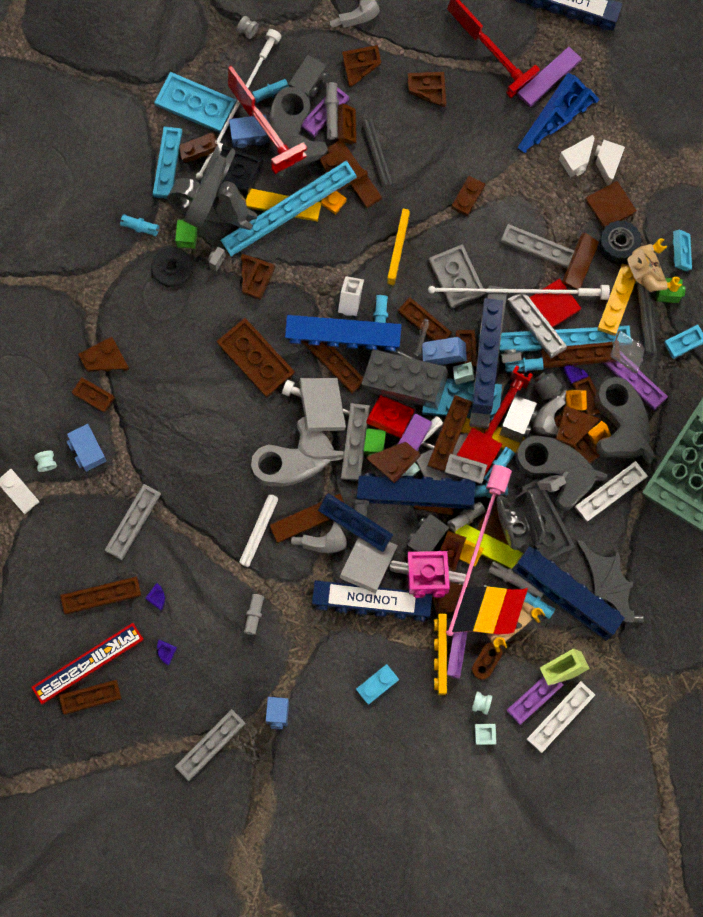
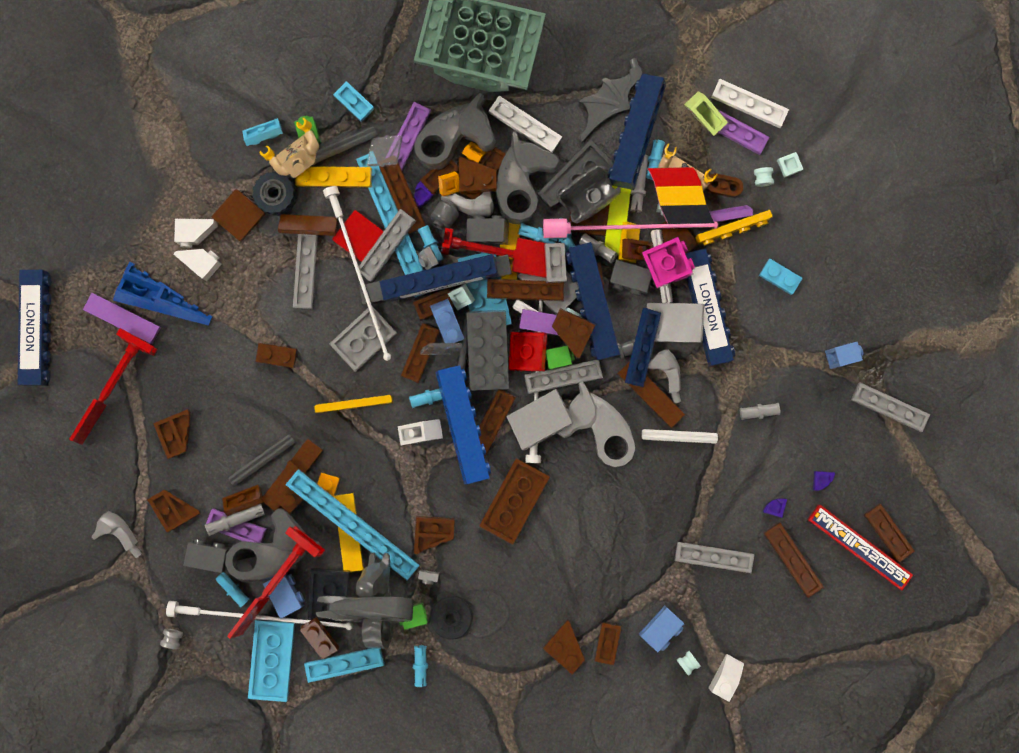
camera: 110 degrees left, 10 degrees up
(551, 483) = (540, 179): light grey plate -> none

